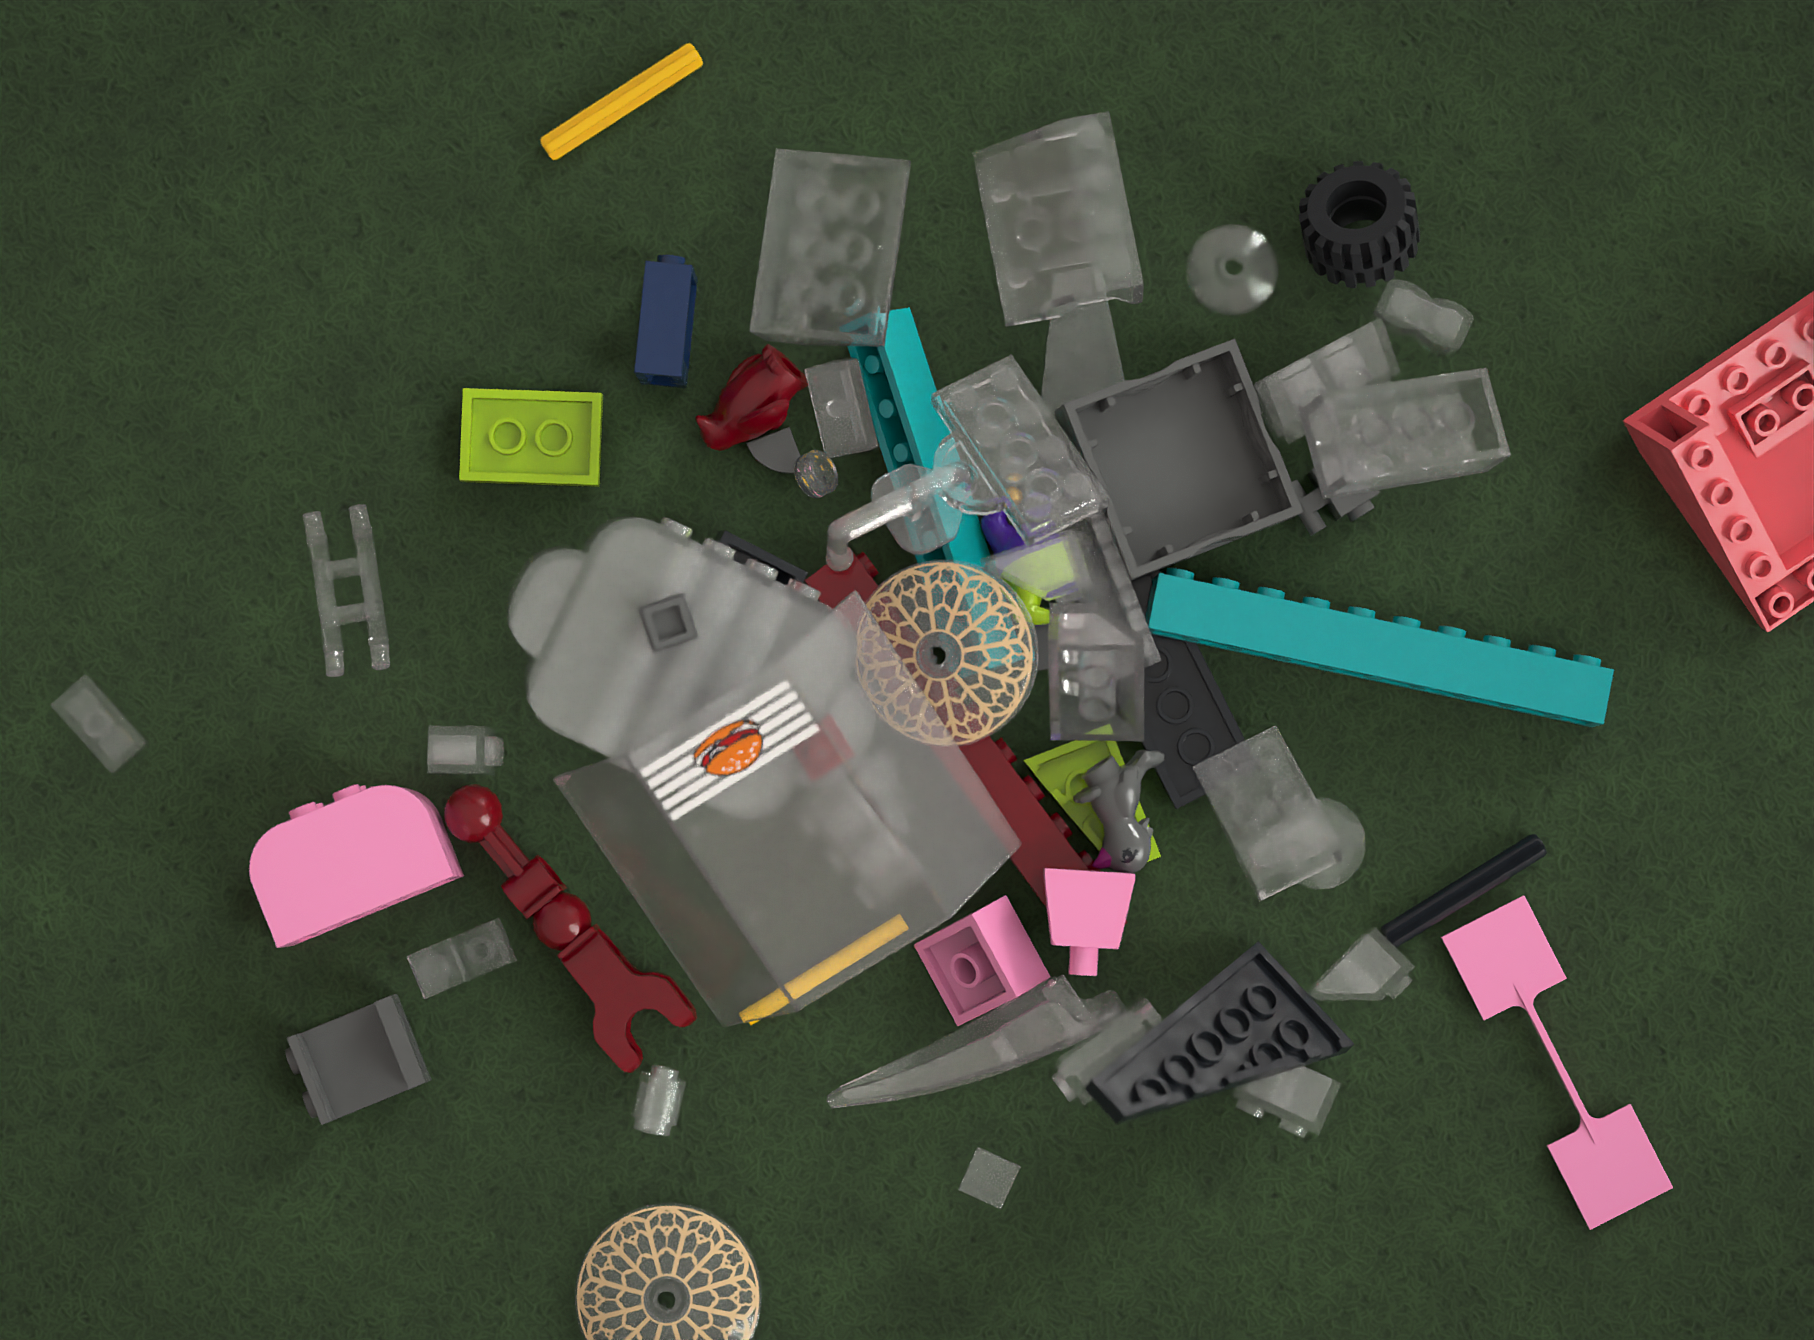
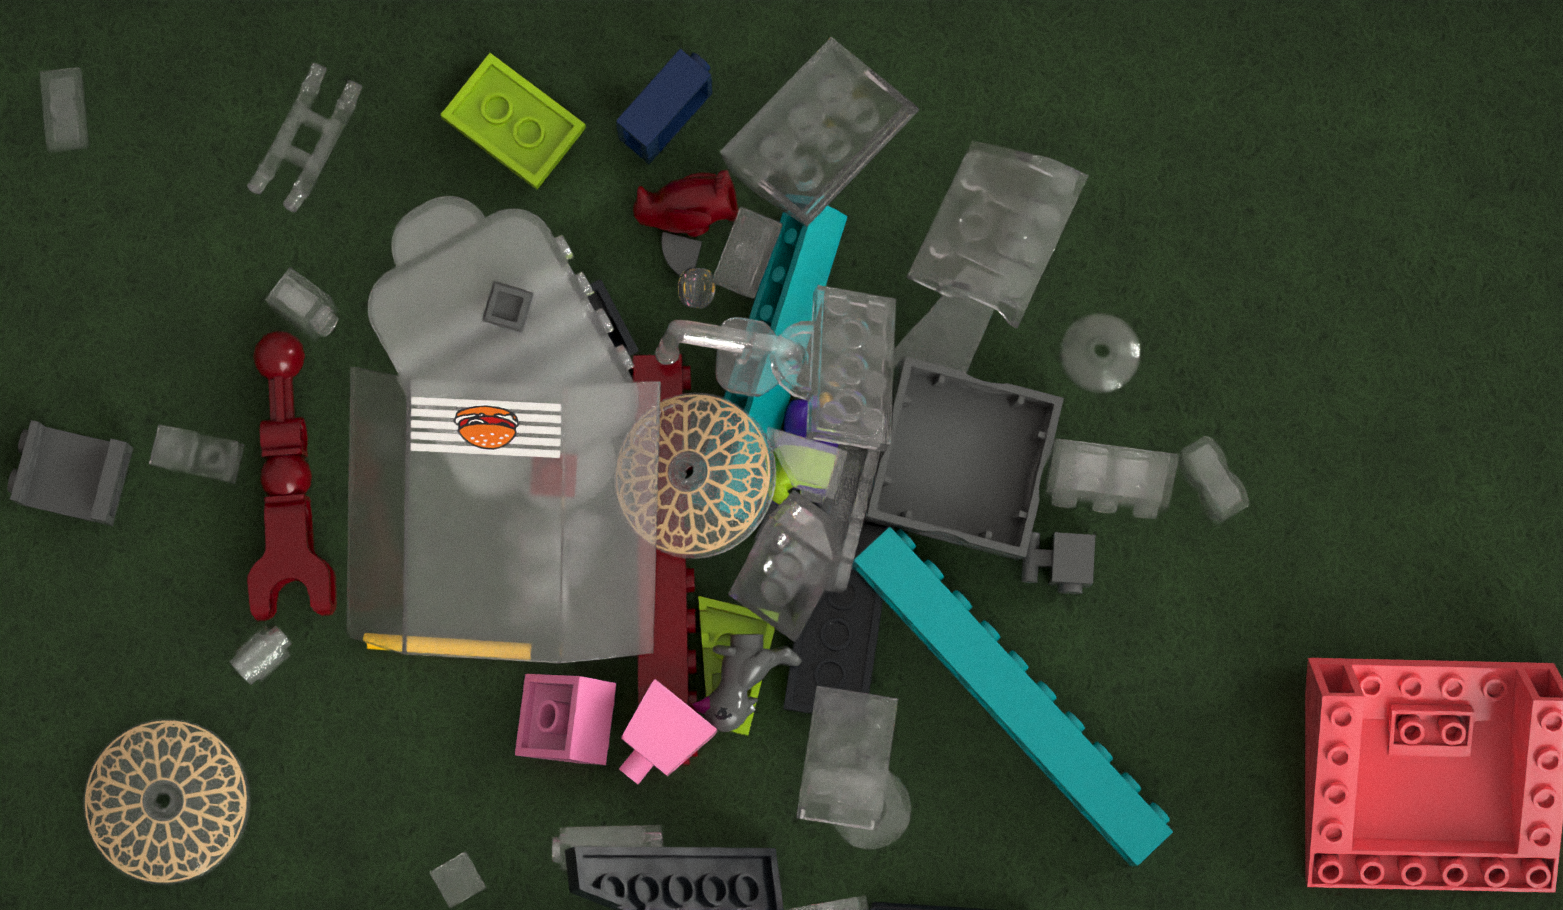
camera: 30 degrees right, 5 degrees down
(349, 860) = (166, 326): bright pink brick -> none
(1002, 1040) = (542, 788): clear piece -> none
(1352, 196) = (1208, 404): black tyre -> none
(1404, 432) = (1139, 551): clear brick -> none

